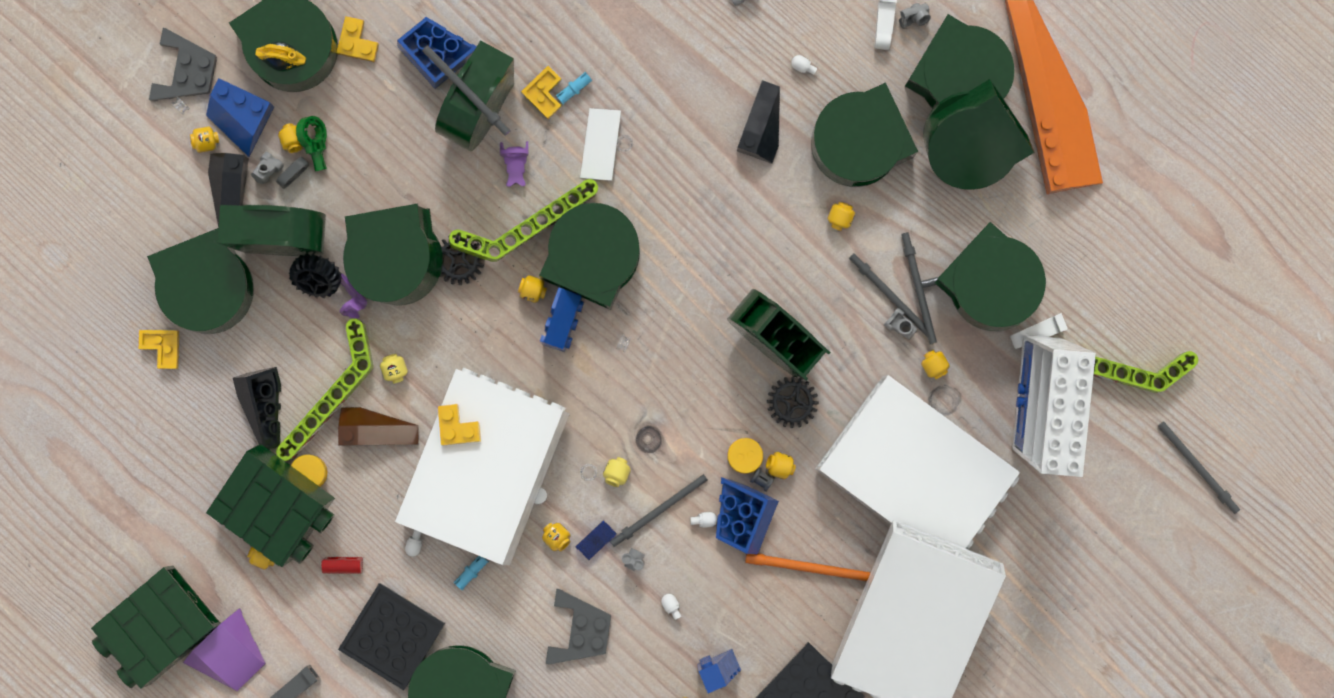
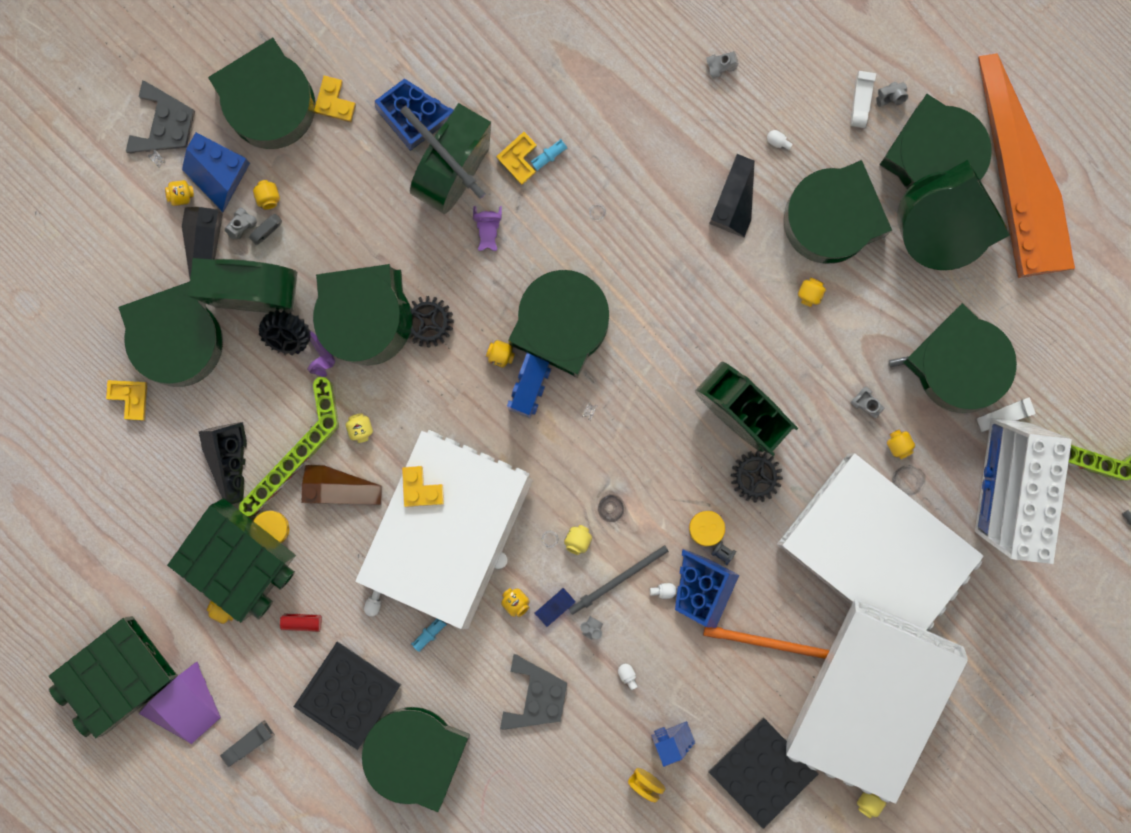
camera: 10 degrees right, 0 degrees up
(280, 56) = (258, 112): yellow hat -> none
(315, 146) = (290, 203): green pin -> none
(530, 222) = (501, 287): lime beam -> none
(600, 144) = (573, 212): white sticker -> none
(780, 465) = (742, 539): yellow head -> none
(866, 270) = (833, 346): dark grey bar -> none
(909, 252) = (879, 331): dark grey bar -> none

